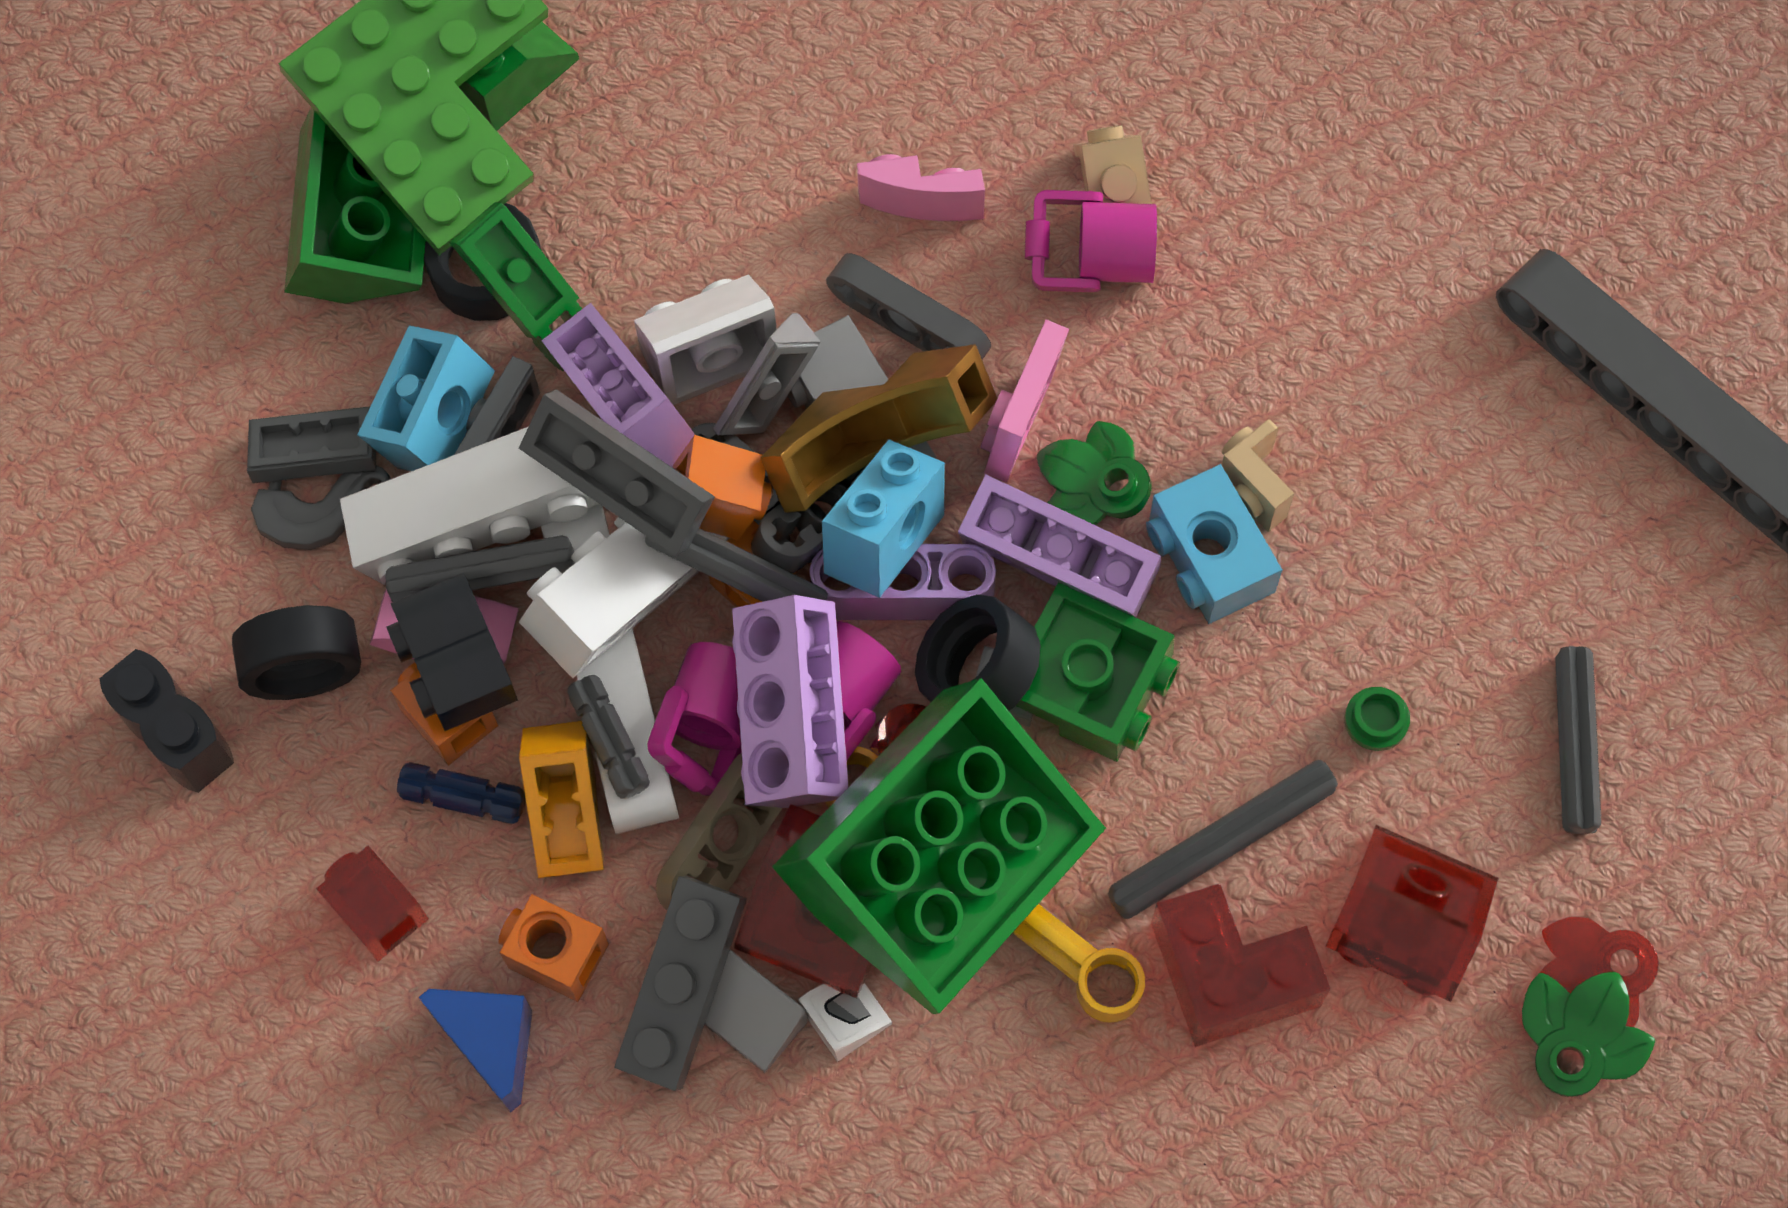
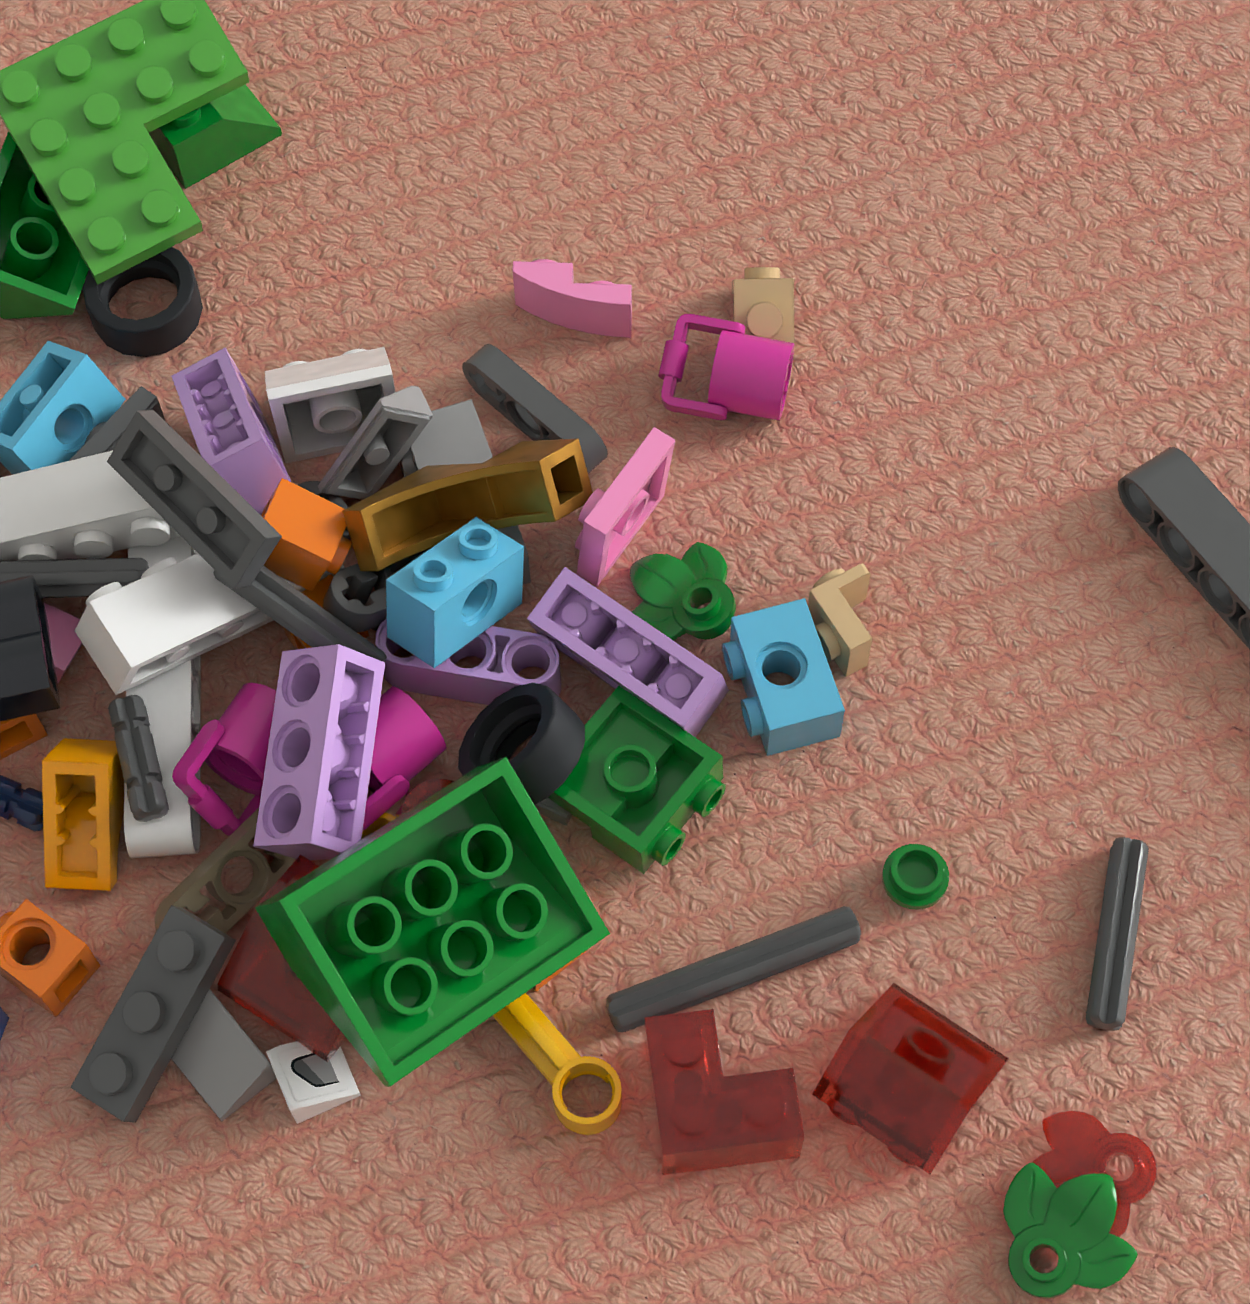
camera: 10 degrees right, 5 degrees down
(517, 274) = (160, 306): green hinge -> none

